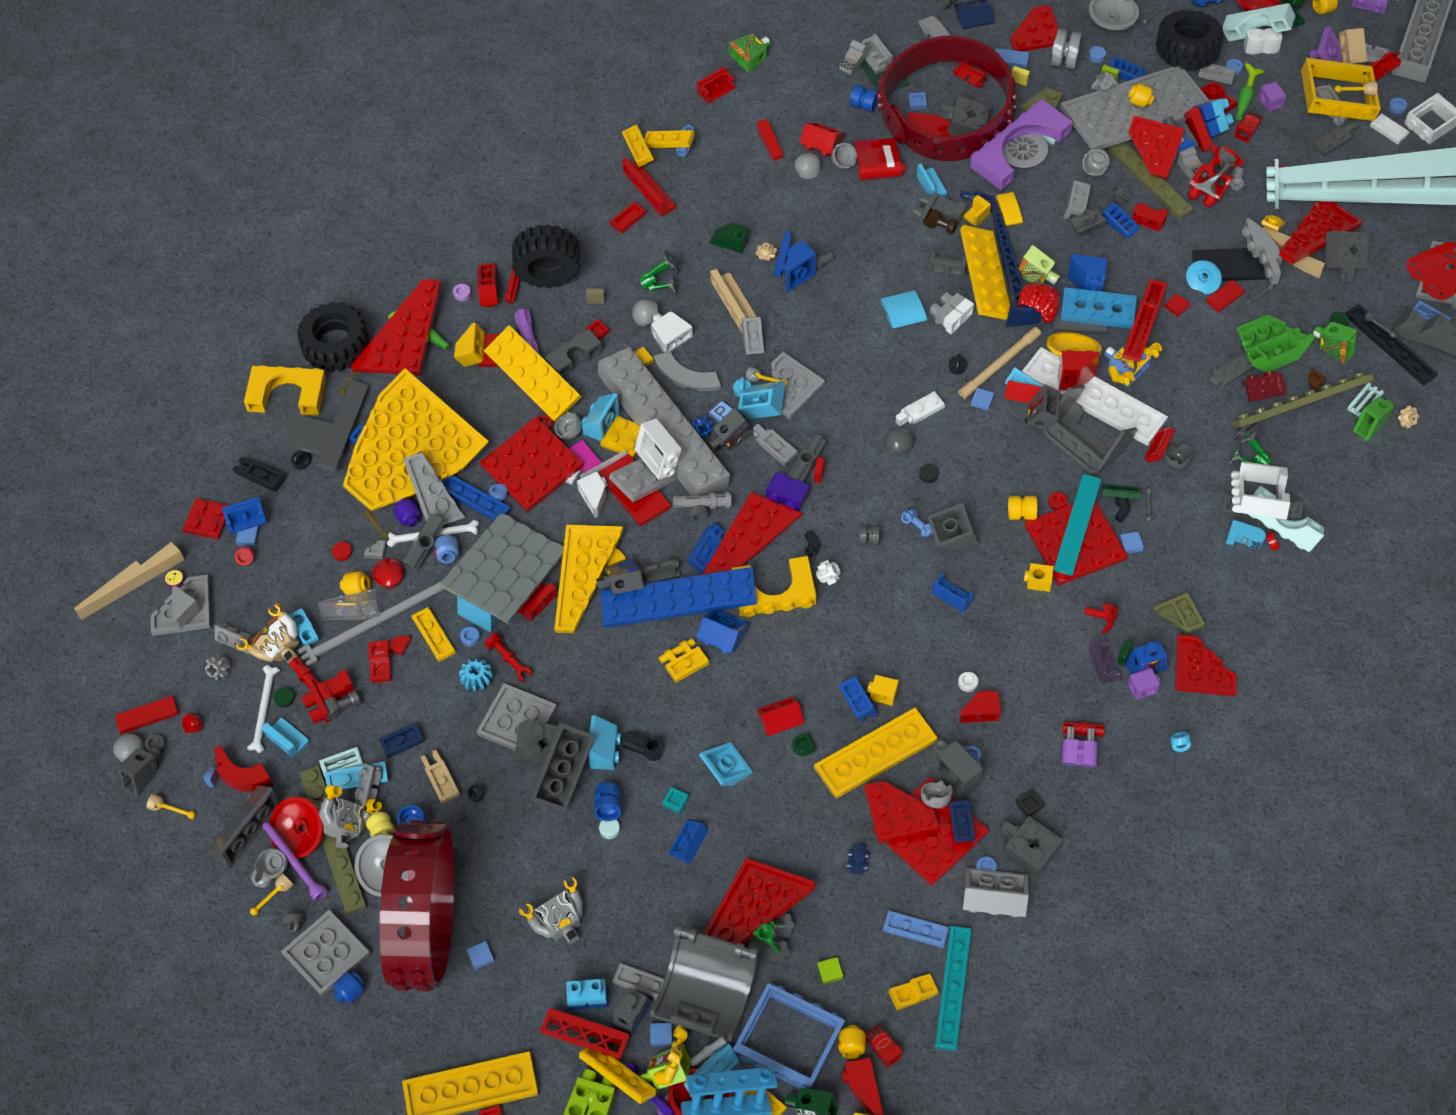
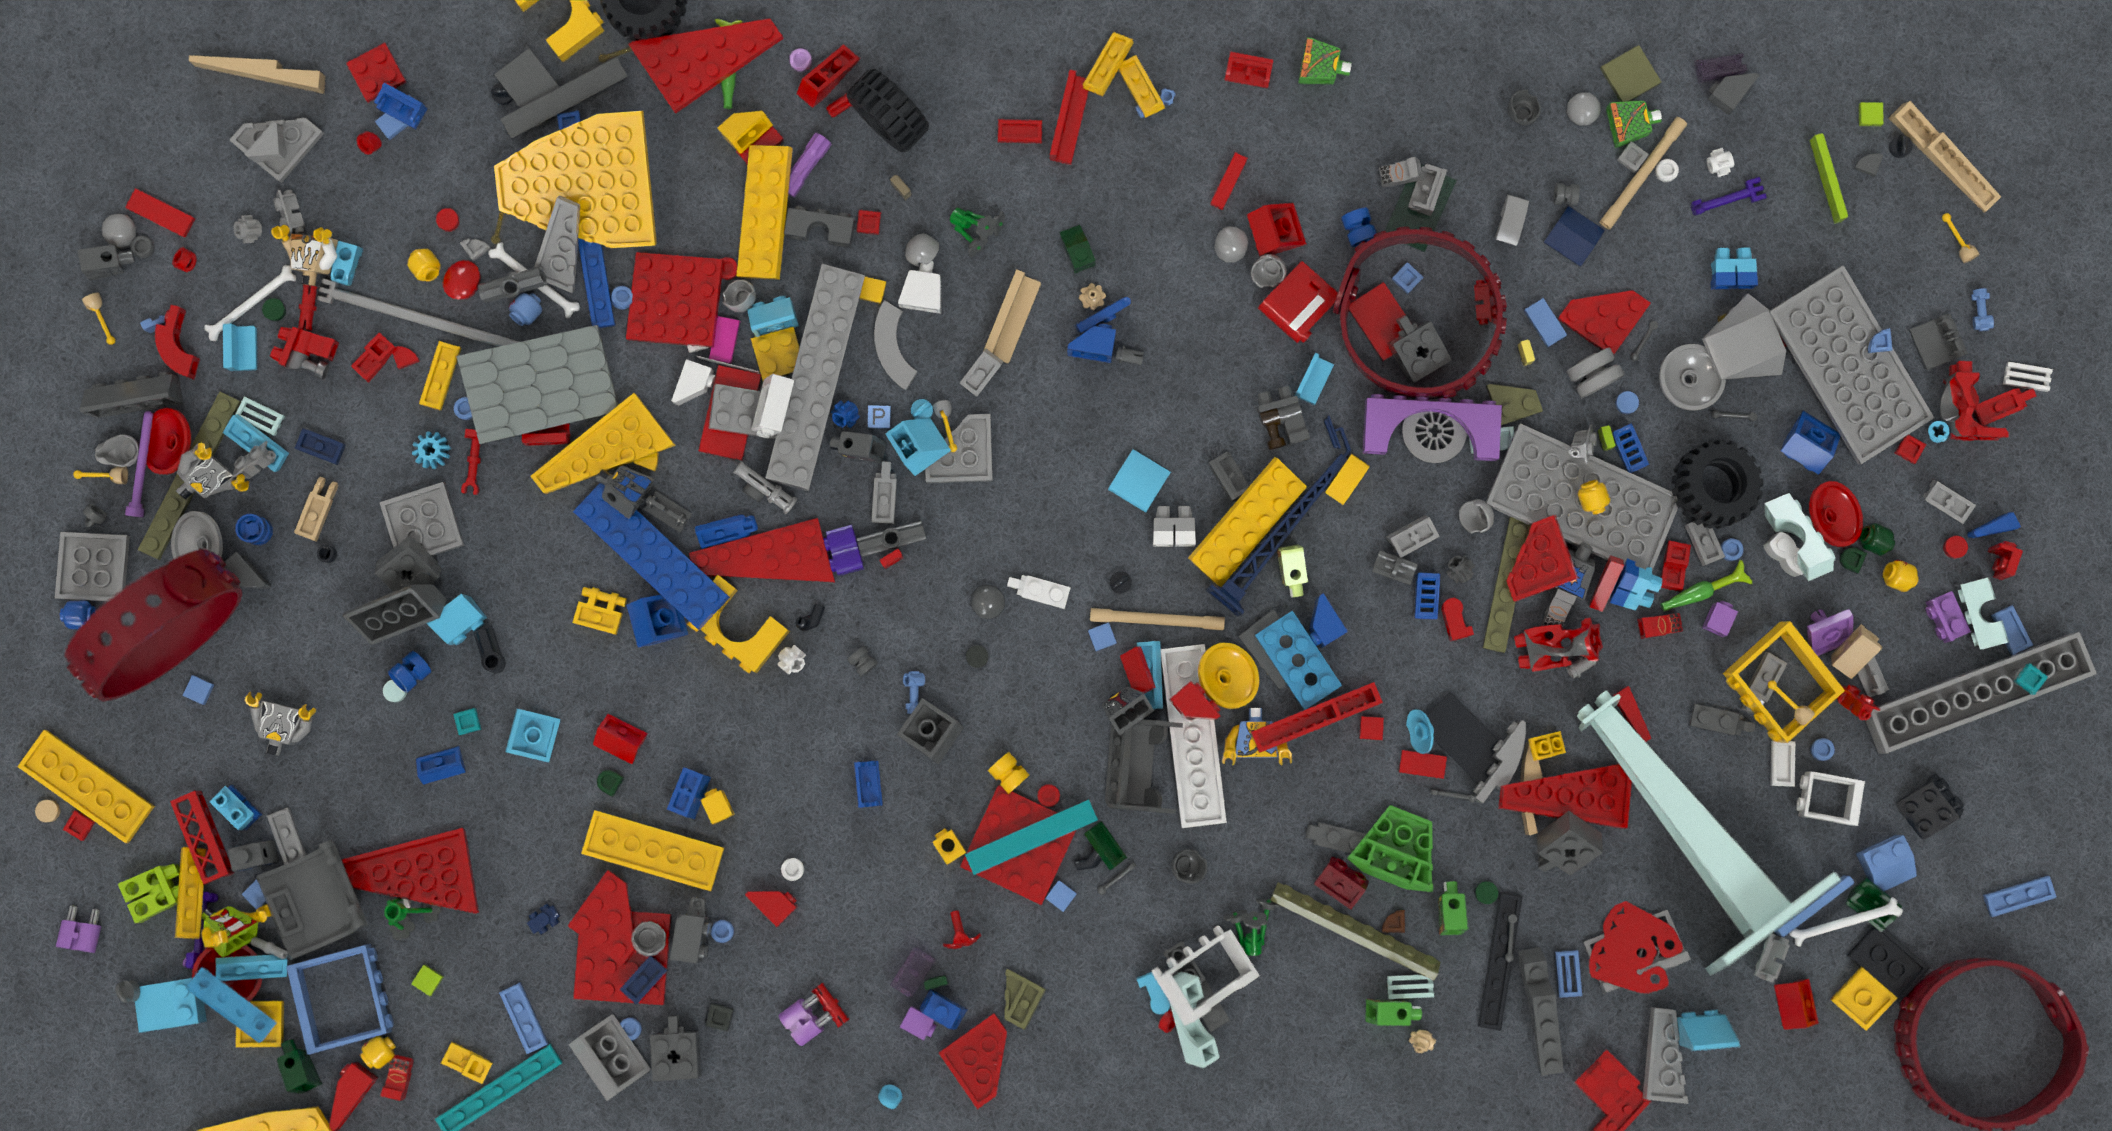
camera: 50 degrees right, 25 degrees up
(174, 578) = (297, 105): light yellow tile -> none
(260, 474) = (456, 74): black hinge -> none
(350, 607) = (402, 288): clear slope -> none
(379, 824) = (230, 505): light yellow piece -> none
(407, 512) = (529, 239): dark purple head -> none
(979, 211) = (1316, 452): yellow panel -> none
(1042, 298) = (1248, 604): red hair -> none
(1159, 444) = (1188, 839): red tile -> none

